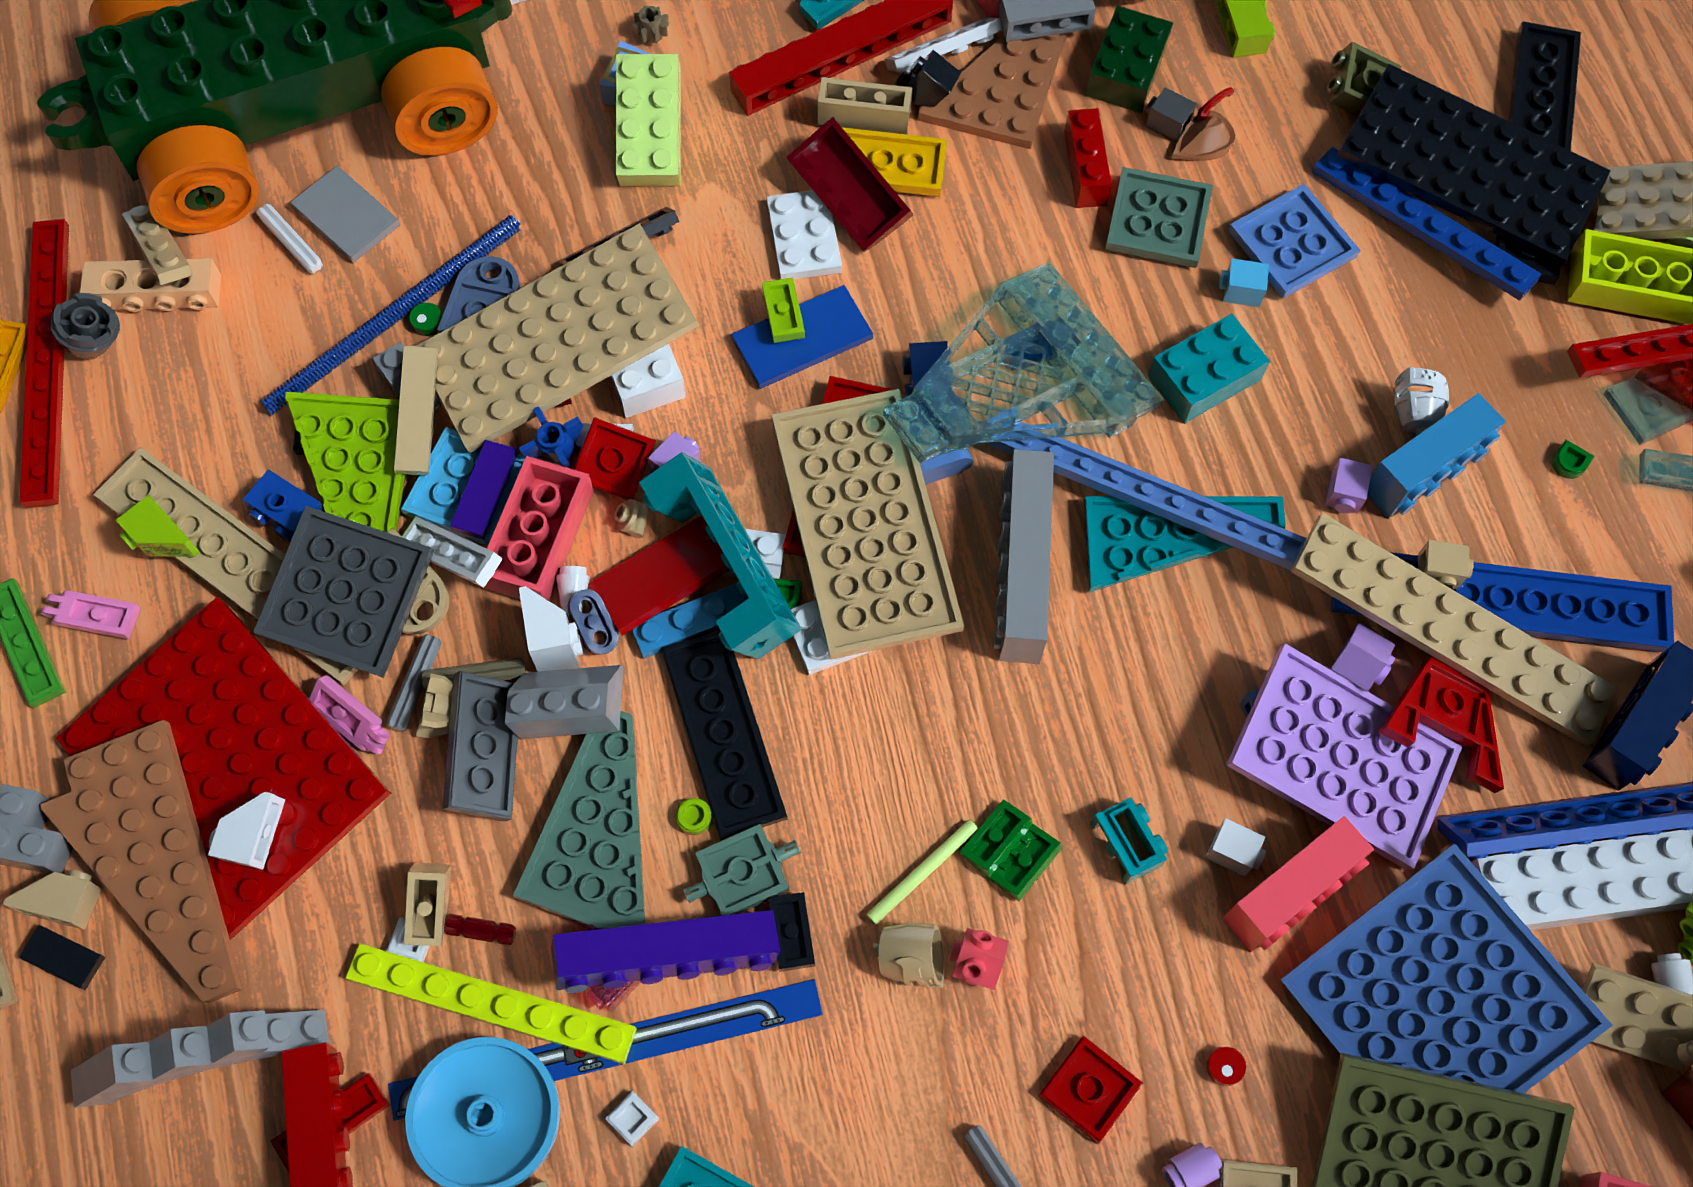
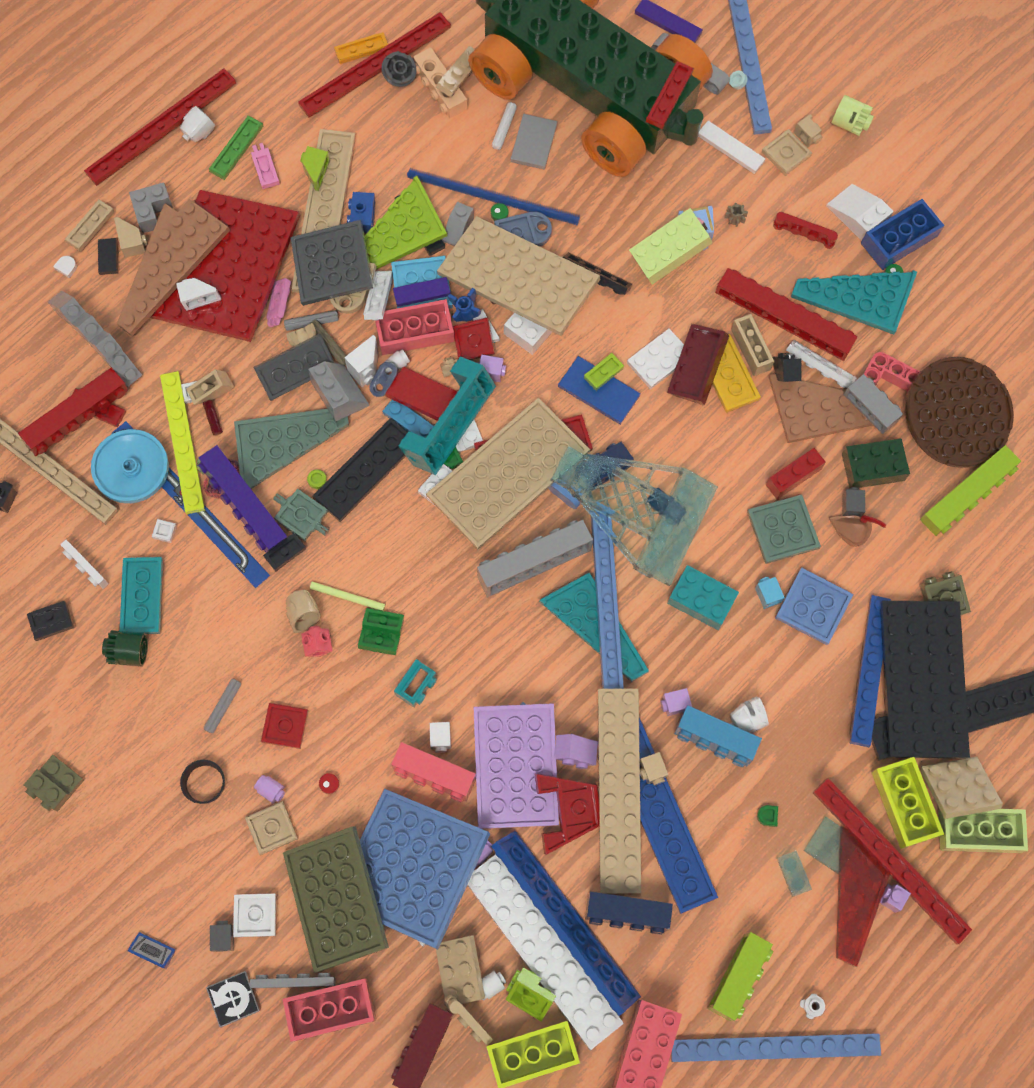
camera: 60 degrees right, 5 degrees up
(26, 1040) = (66, 266): none -> white tile
(416, 410) = (441, 237): tan tile -> none

